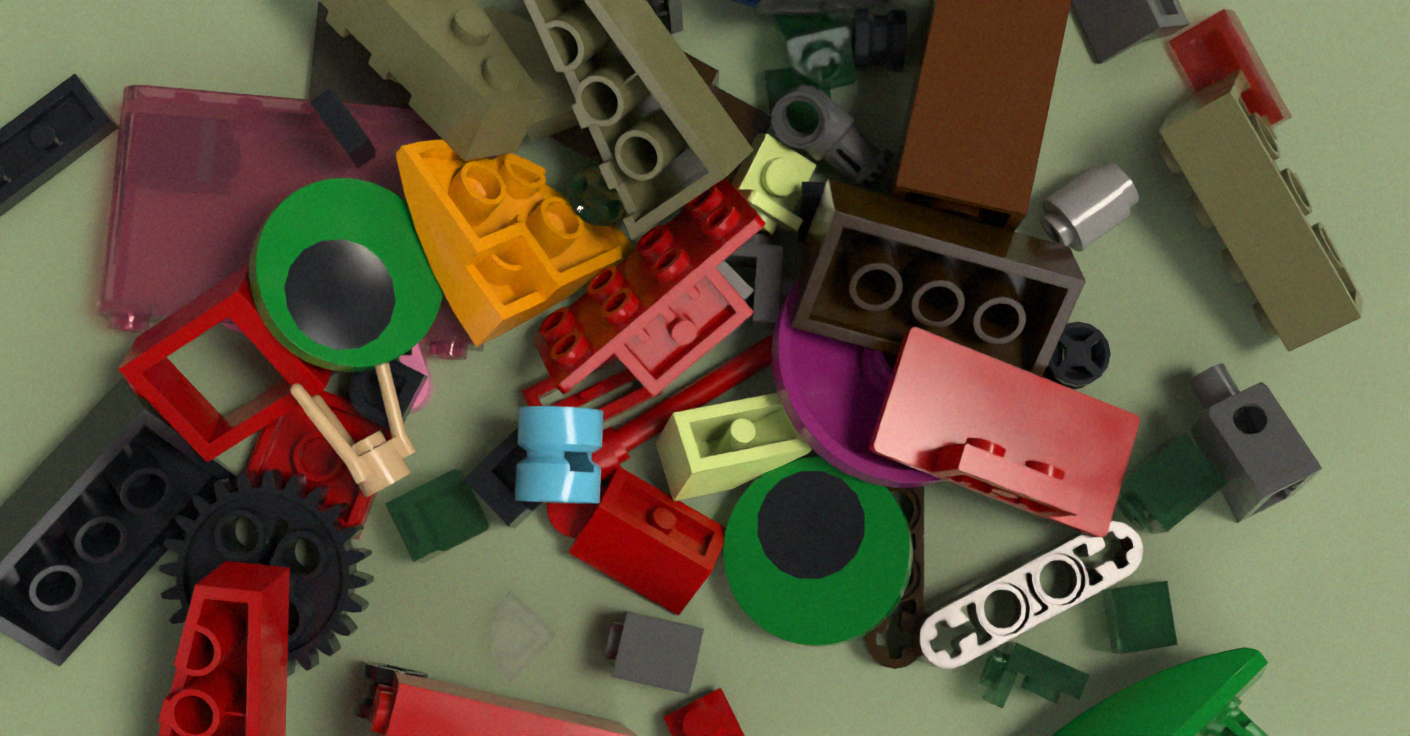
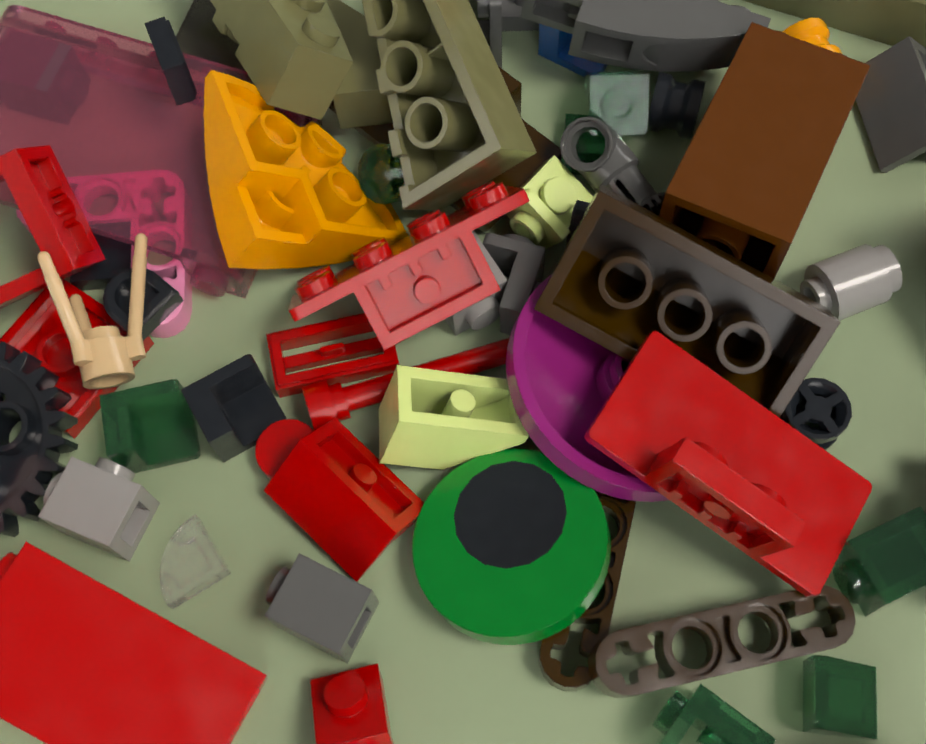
camera: 15 degrees right, 15 degrees down
(343, 275) = (122, 172): green piece -> none
(414, 606) = (99, 506): none -> light grey brick
(559, 455) = (277, 375): medium azure wheel -> none

